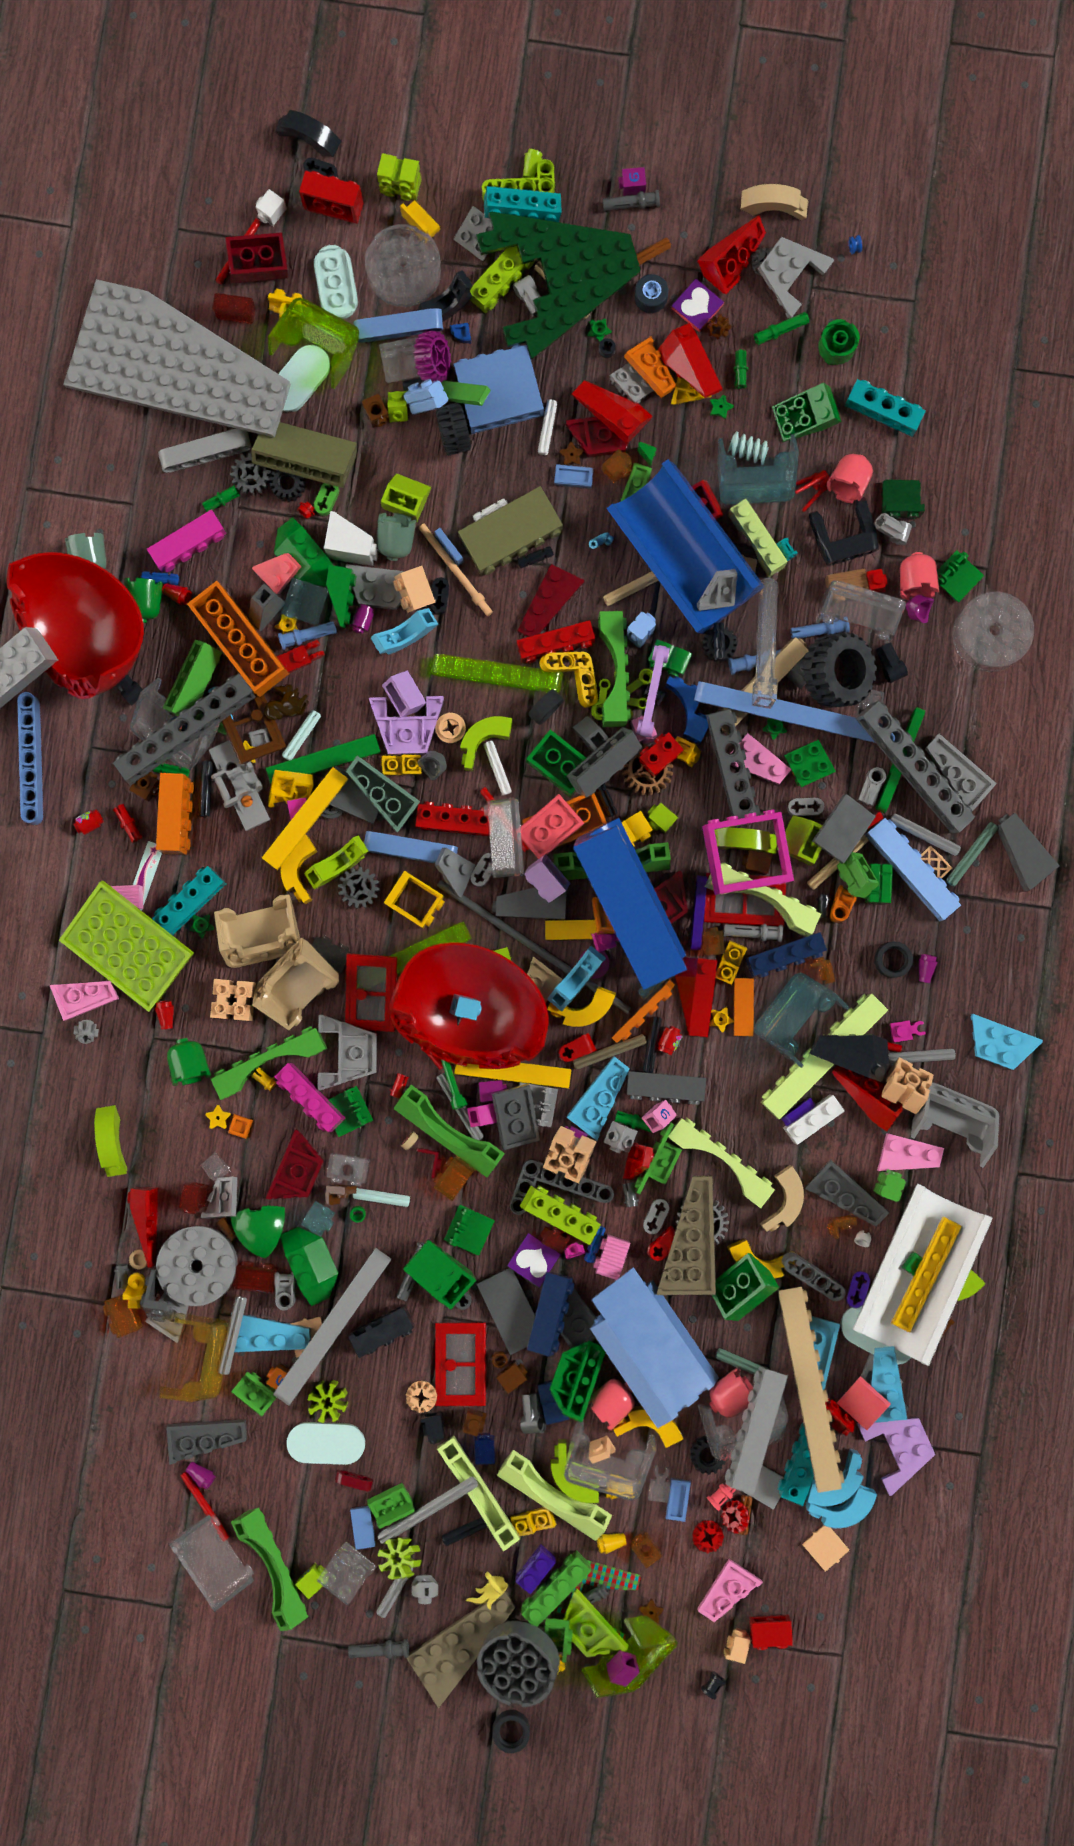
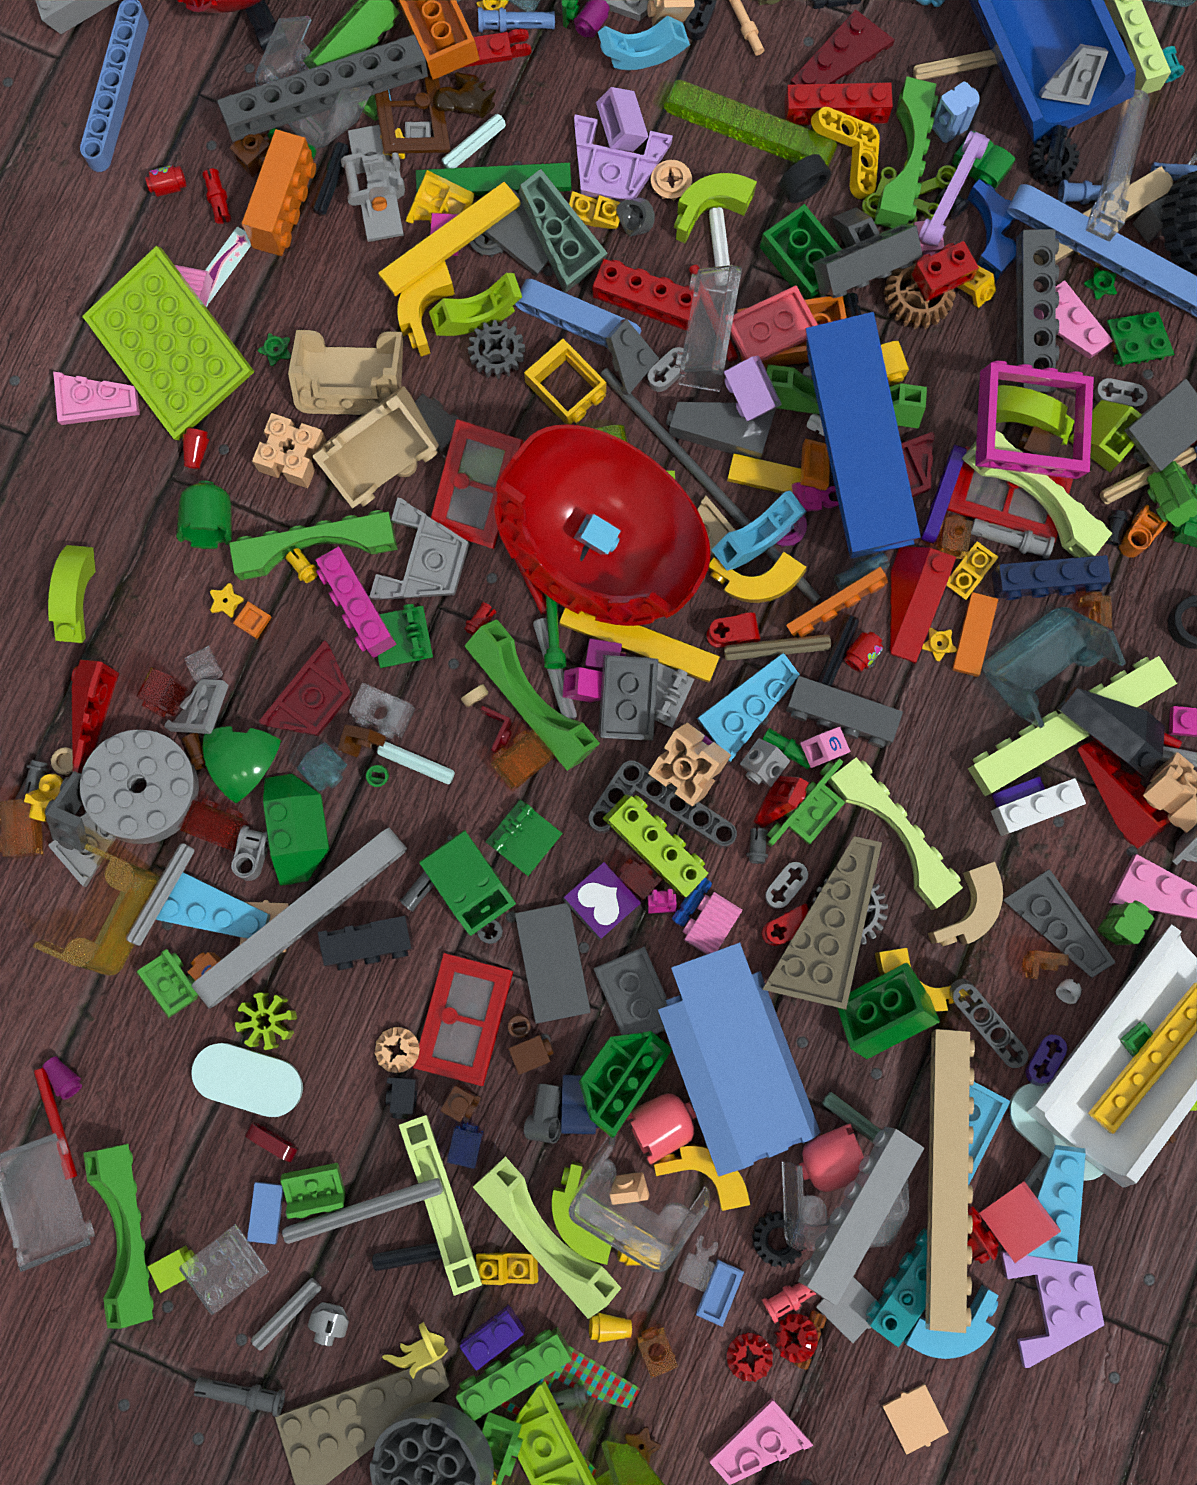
camera: 15 degrees right, 5 degrees down
(86, 1031) = (83, 442): light grey gear -> none
(189, 900) = (270, 309): teal brick -> none
(195, 1438) = (70, 1025): dark grey wing -> none
(399, 1547) = (296, 1280): lime gear -> none
(550, 1314) = (607, 977): dark blue brick -> none
(661, 818) = (924, 359): lime brick -> none
(849, 1512) = (957, 1378): medium azure arch -> none

